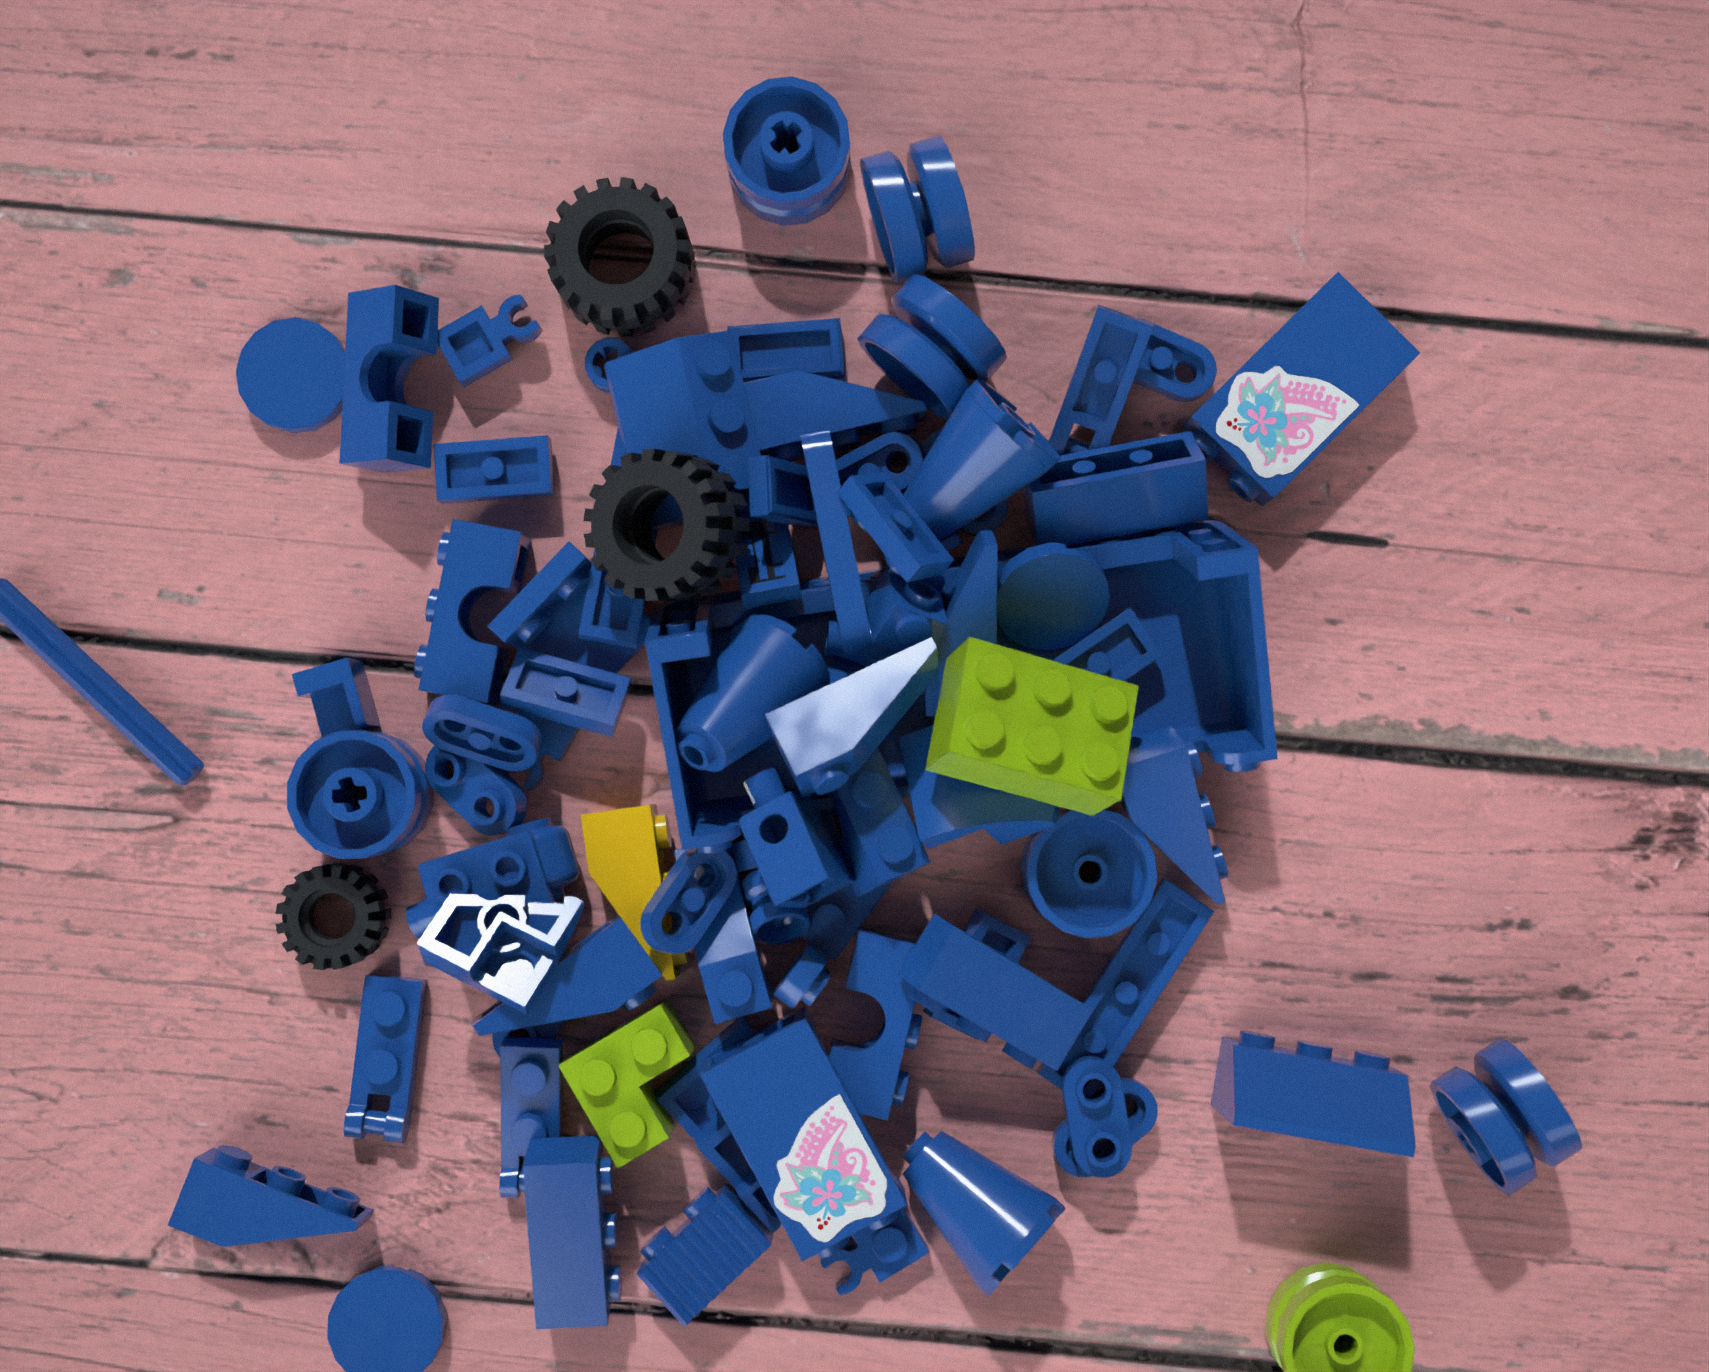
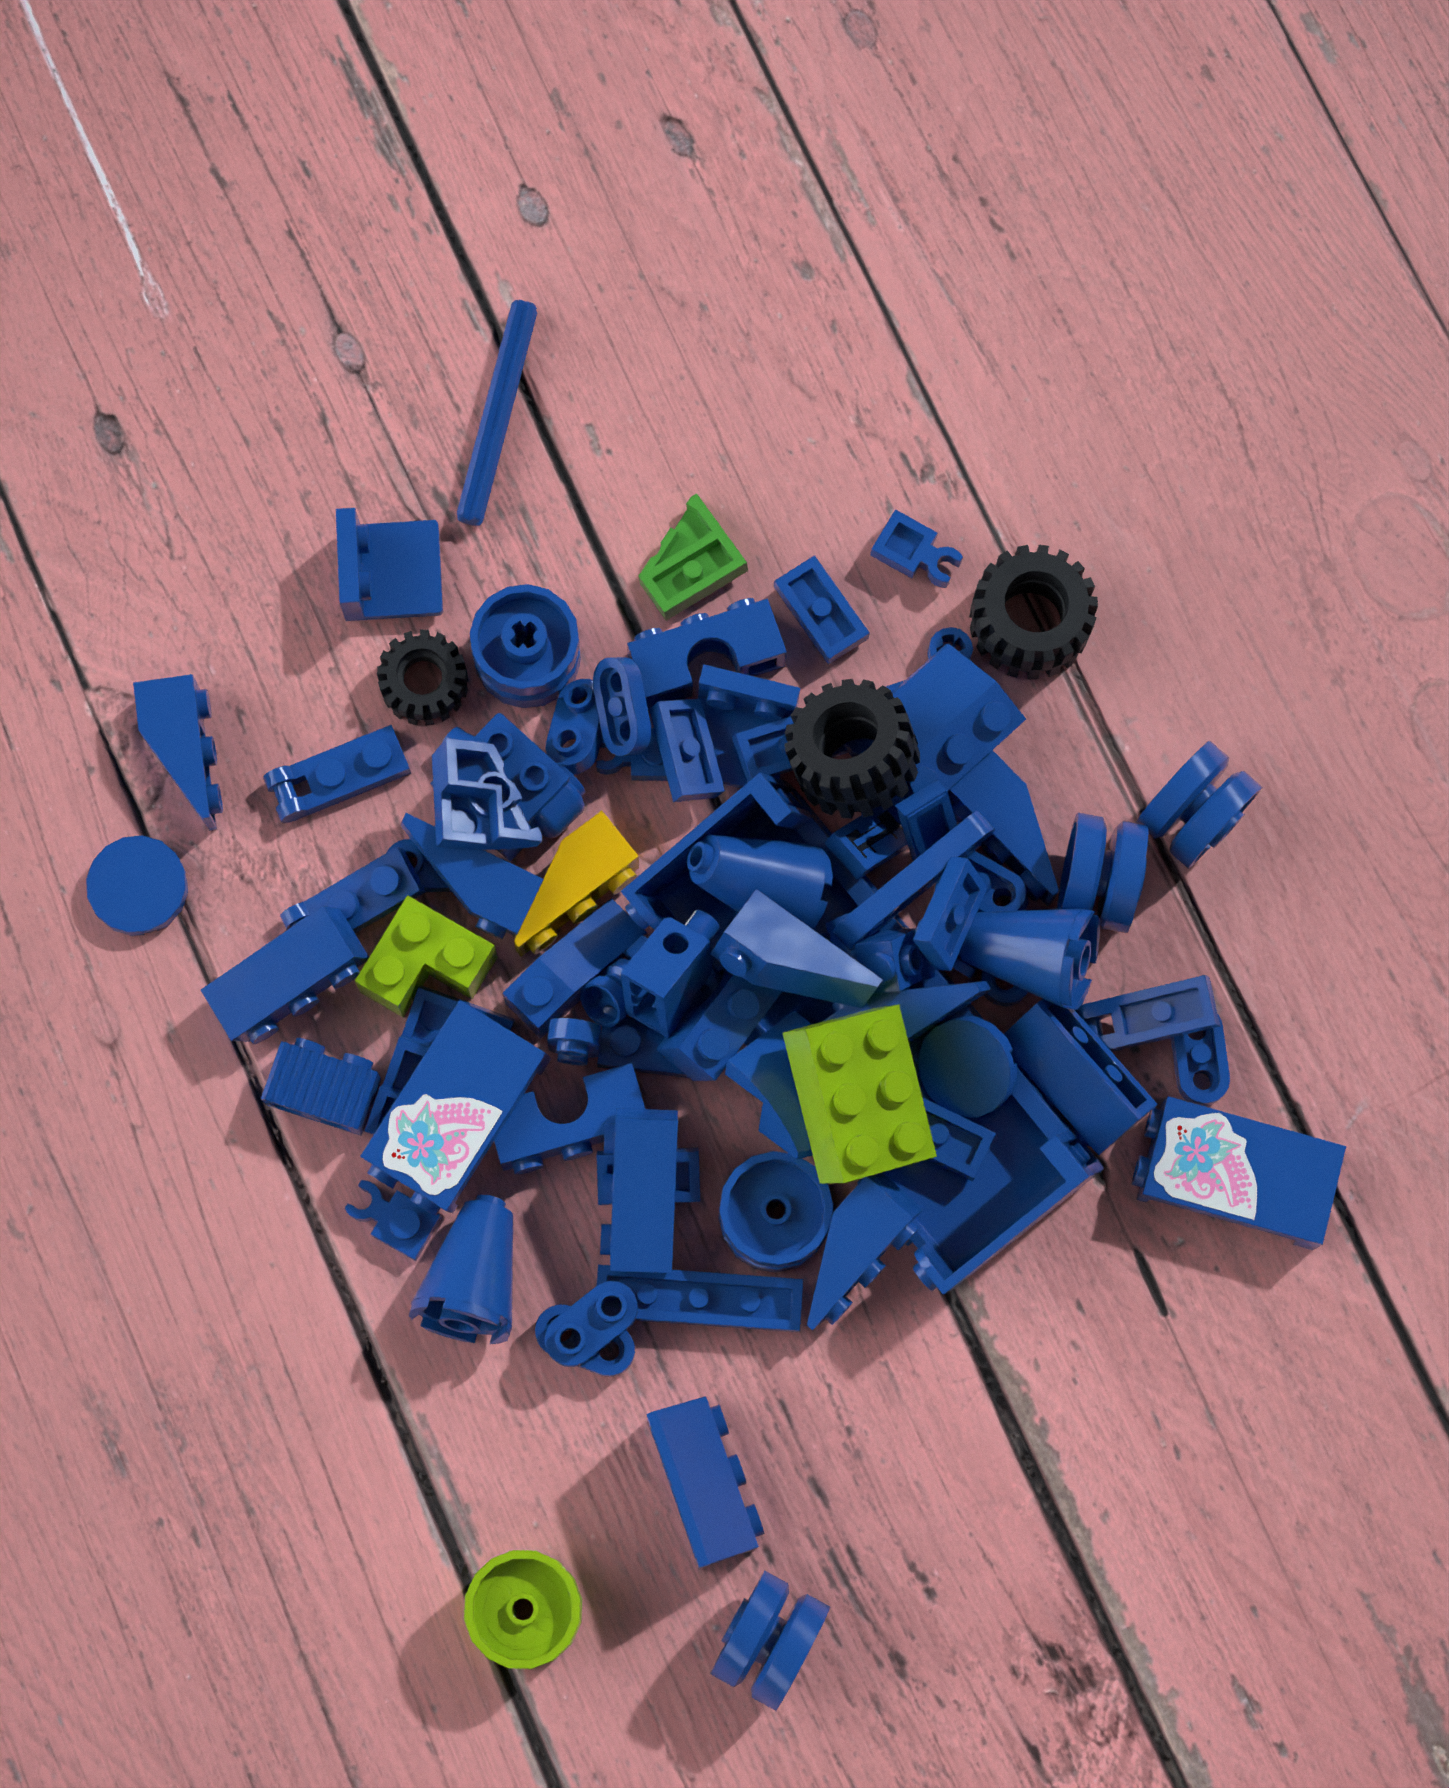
camera: 55 degrees right, 10 degrees down
(193, 890) = (388, 568): none -> blue bracket
(292, 375) = (806, 430): blue tile -> none
(339, 696) = (590, 590): blue panel -> none
(368, 573) = (691, 562): none -> bright green wing
(383, 339) = (870, 478): blue arch -> none
(688, 903) = (582, 922): blue plate -> none
(783, 118) = (1190, 660): blue wheel -> none
(789, 347) = (1047, 780): blue tile -> none

